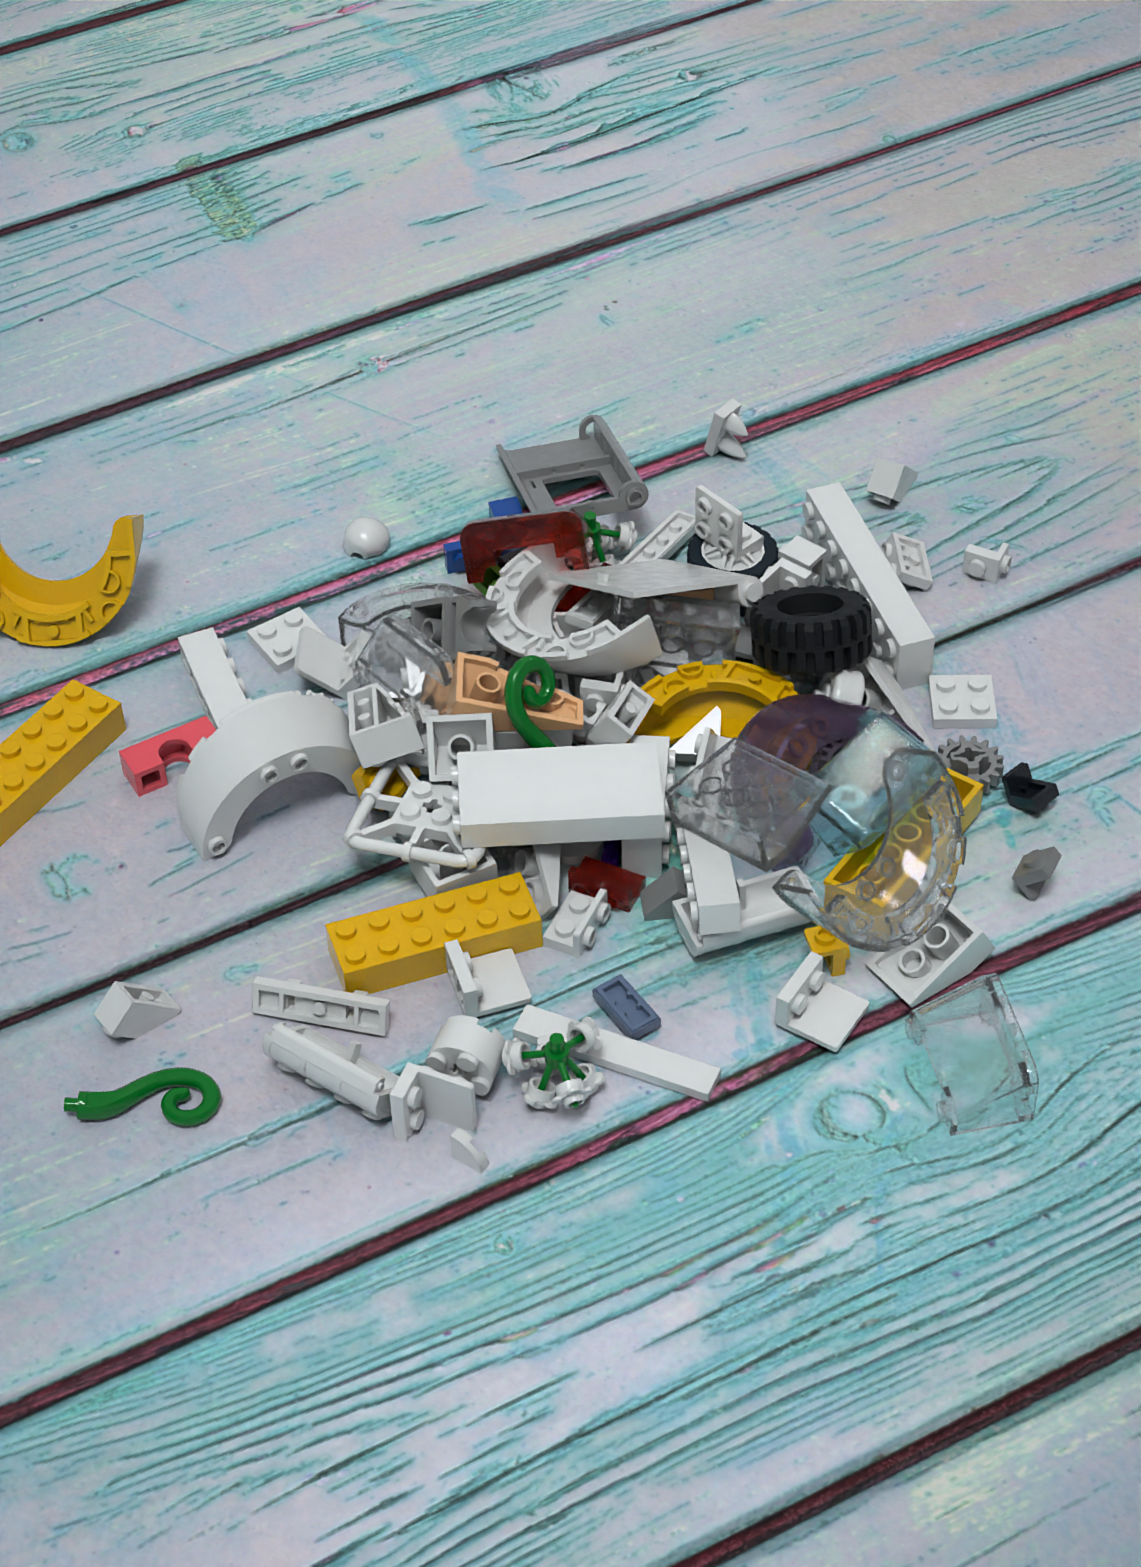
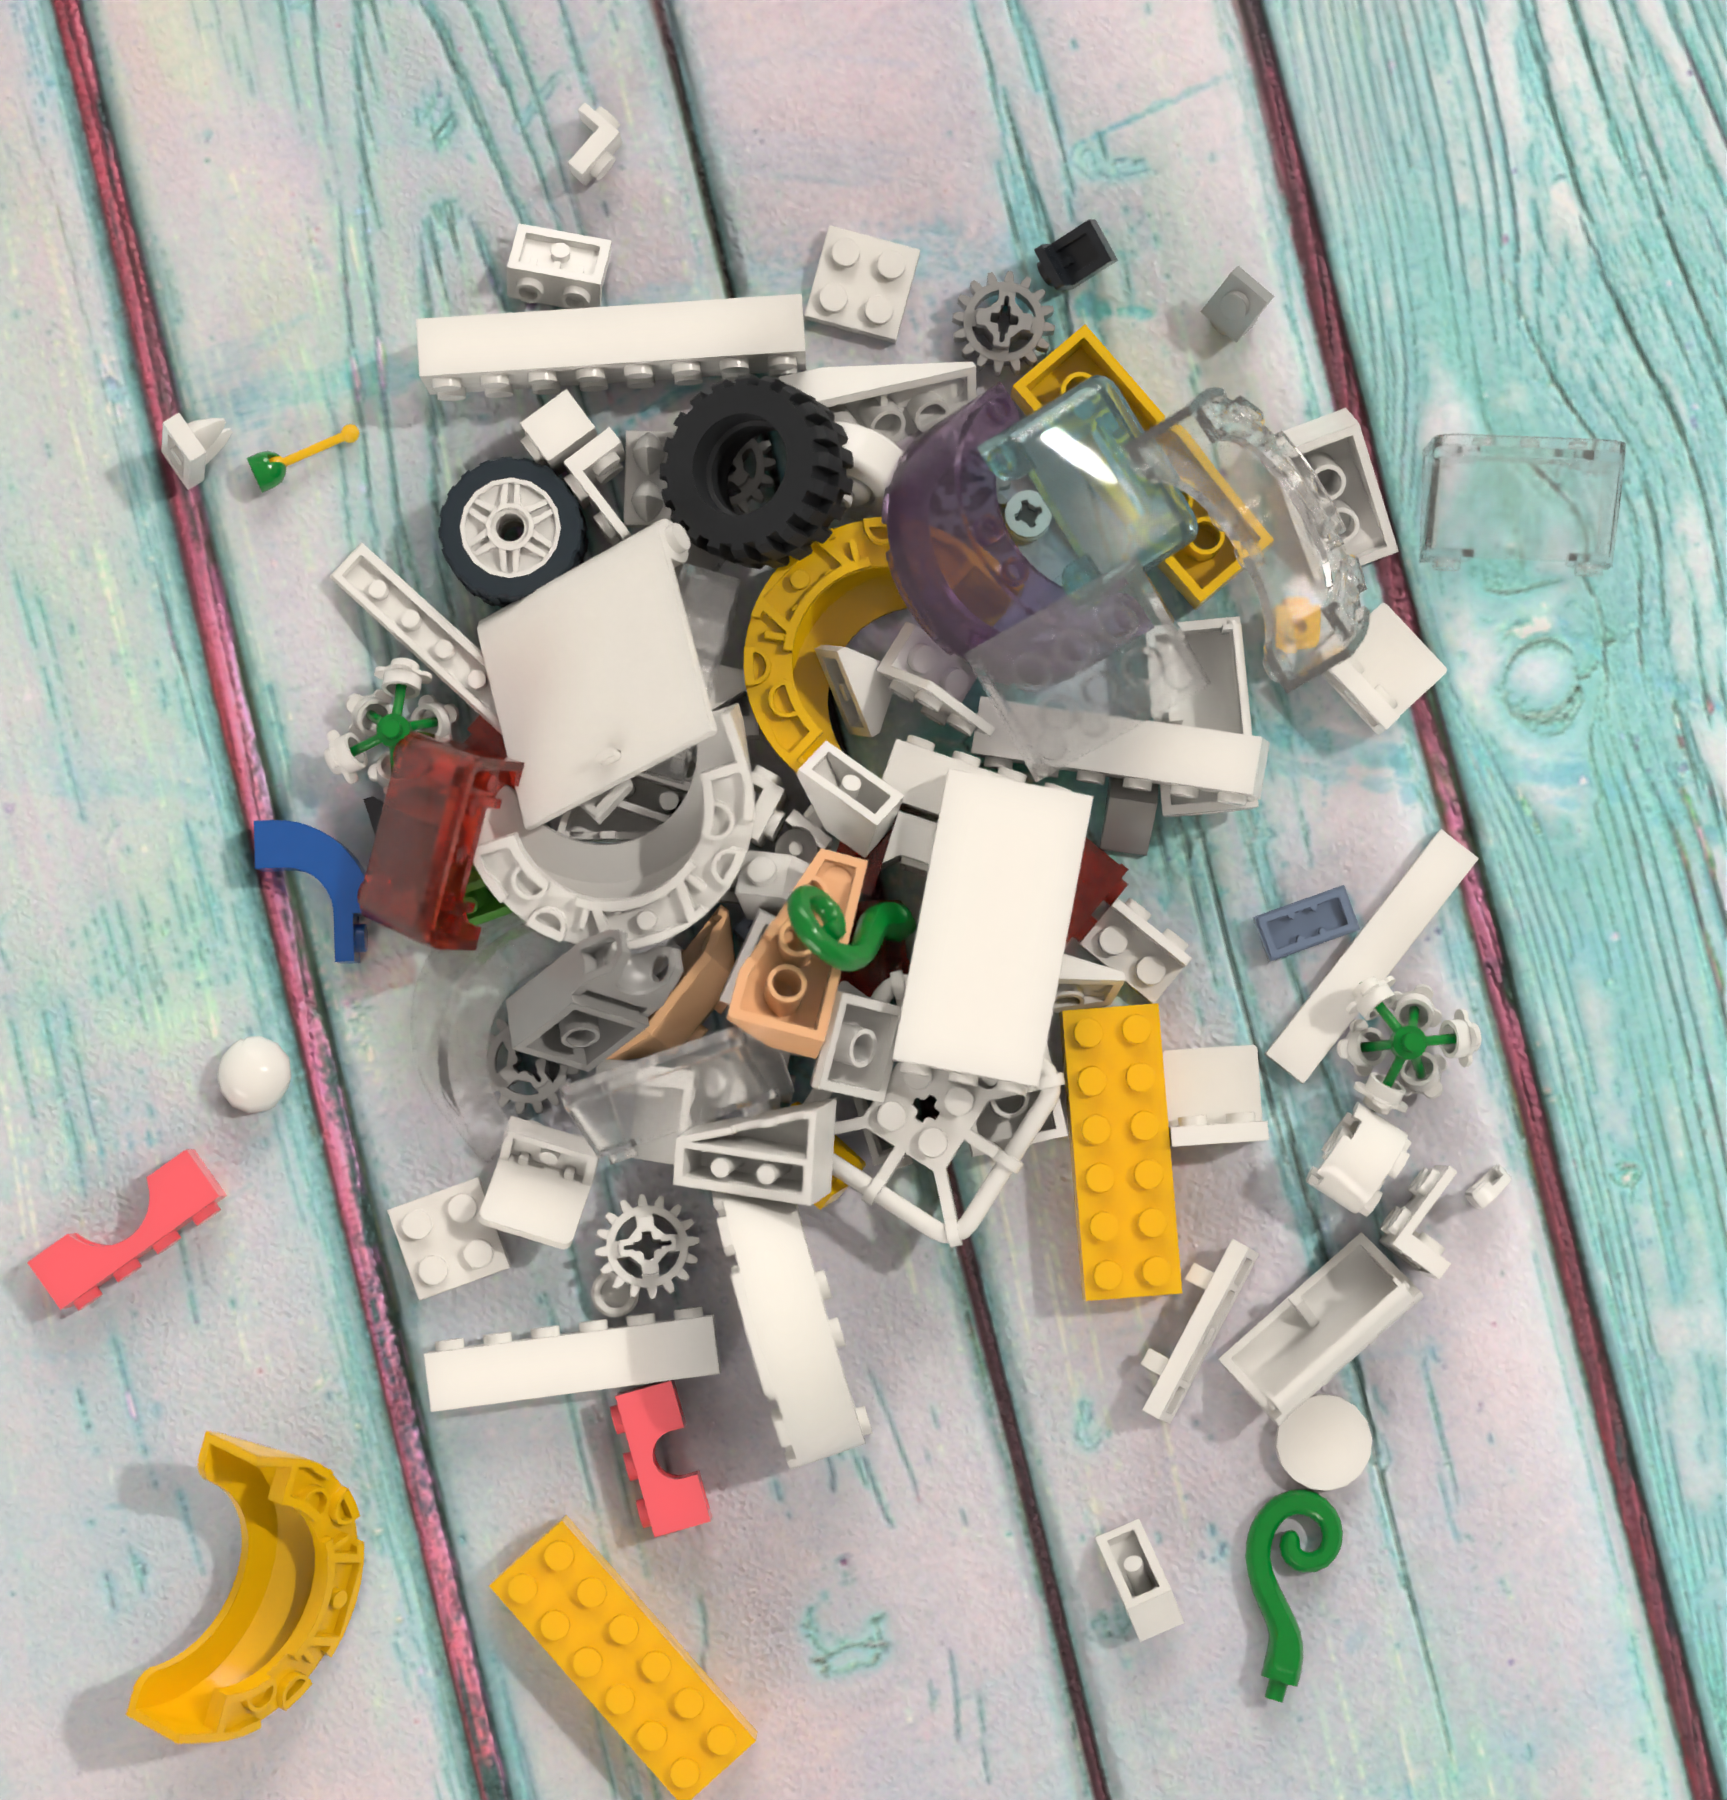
camera: 80 degrees left, 40 degrees up
(258, 1098) = (1324, 1443): none -> white tile
(282, 519) = (177, 1195): none -> coral arch
(577, 459) = (170, 720): light grey piece -> none
(723, 525) = (484, 526): white bracket -> none
(729, 473) = (271, 468): none -> hinge
(890, 481) = (366, 223): white slope -> none

